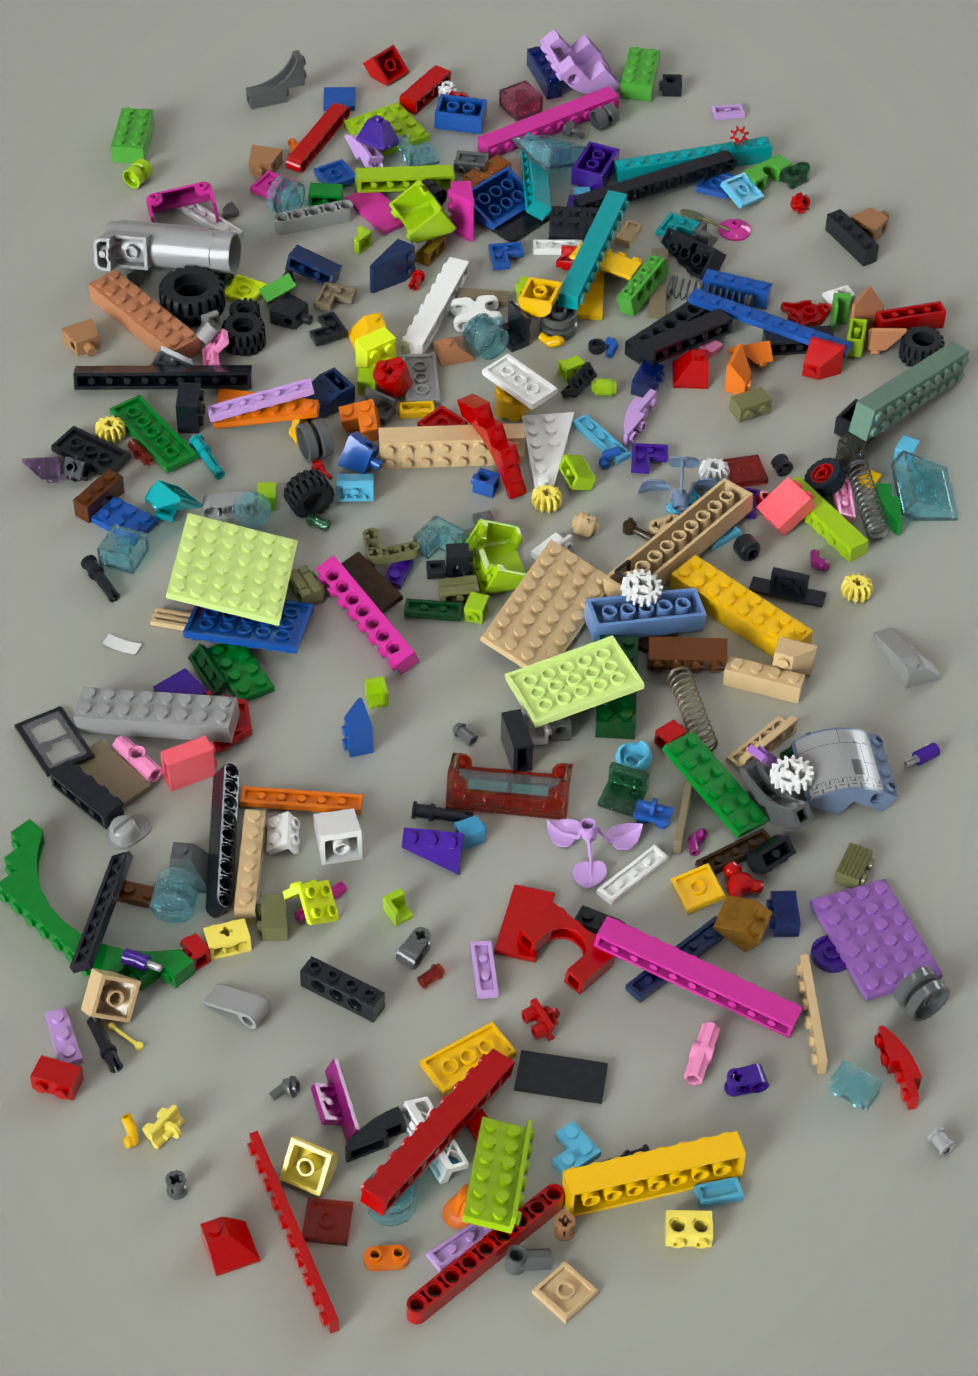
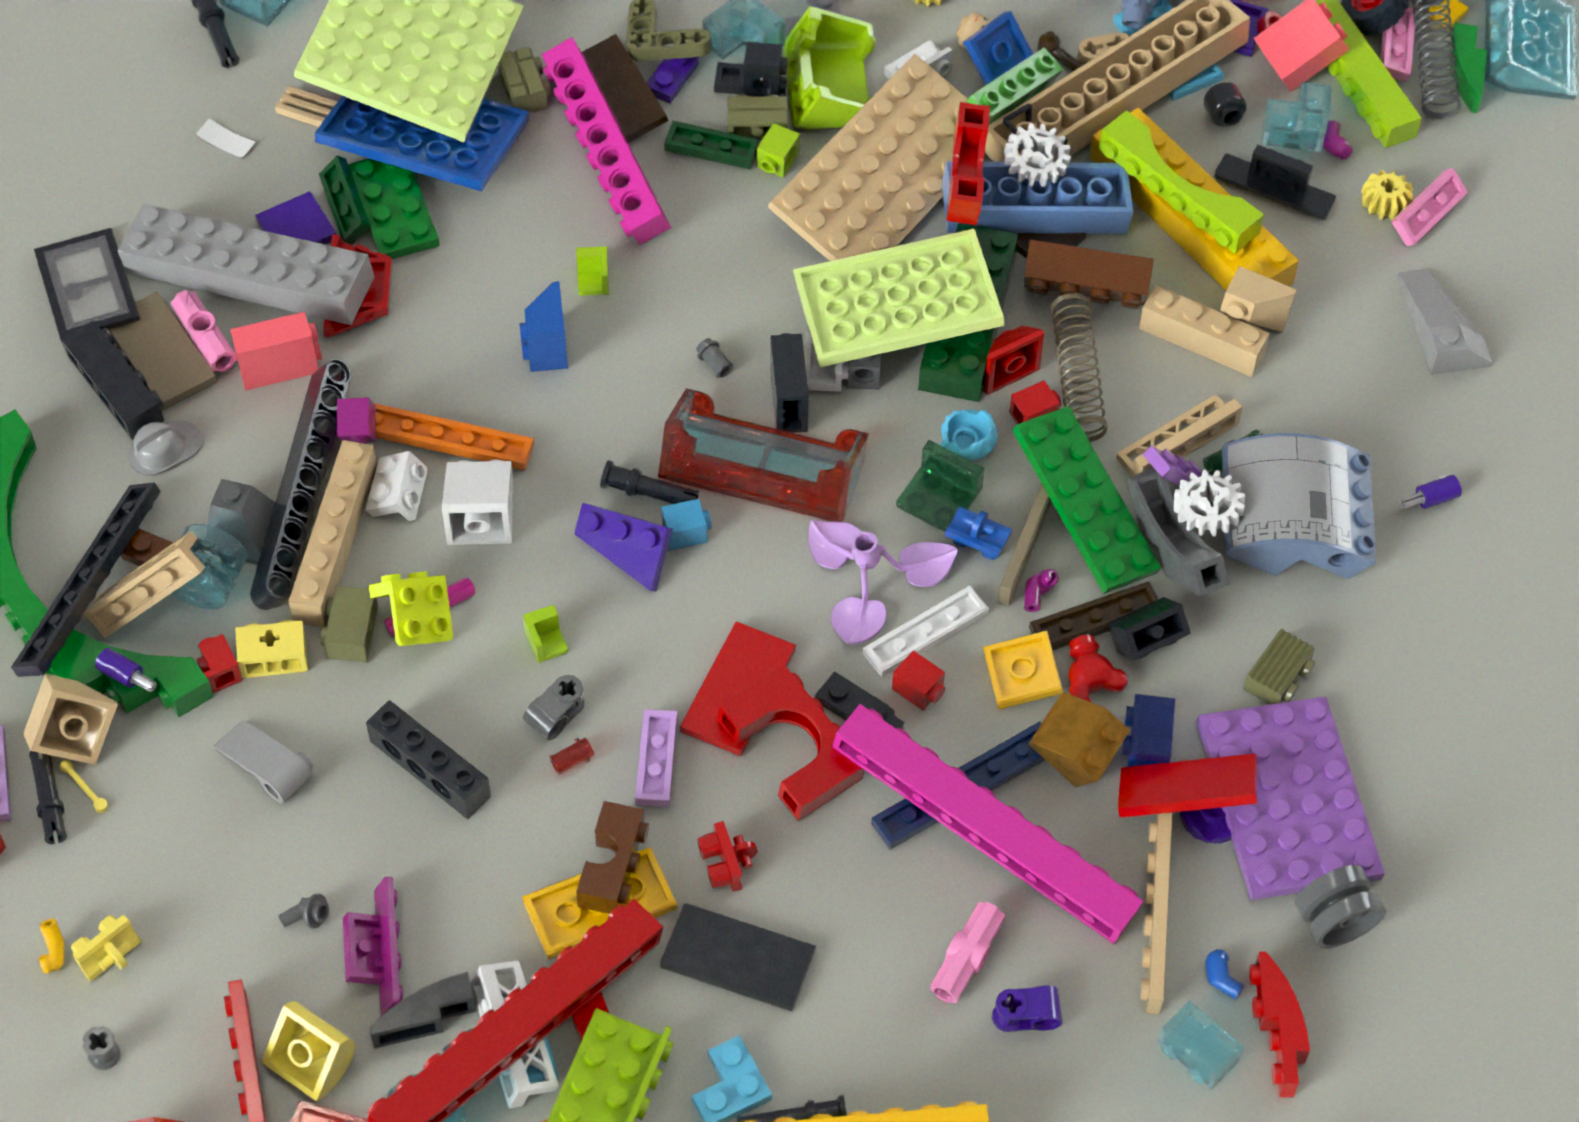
camera: 10 degrees right, 10 degrees up
(141, 910) = (144, 586): none -> tan fence
(250, 796) = (356, 420): none -> magenta brick
(471, 1043) = (606, 884): none -> reddish brown arch
(601, 533) = (998, 47): none -> blue plate
(602, 609) = (967, 163): none -> red arch
(614, 554) = (1018, 84): none -> bright green brick
(636, 903) = (919, 681): none -> red brick
(652, 708) = (1013, 357): none -> red slope
(763, 610) = (1224, 217): none -> lime arch
(795, 552) = (1298, 123): none -> clear light blue brick
(815, 938) = (1188, 785): none -> red tile
(856, 1045) = (1218, 974): none -> blue arm
(884, 591) = (1429, 207): none -> bright pink plate

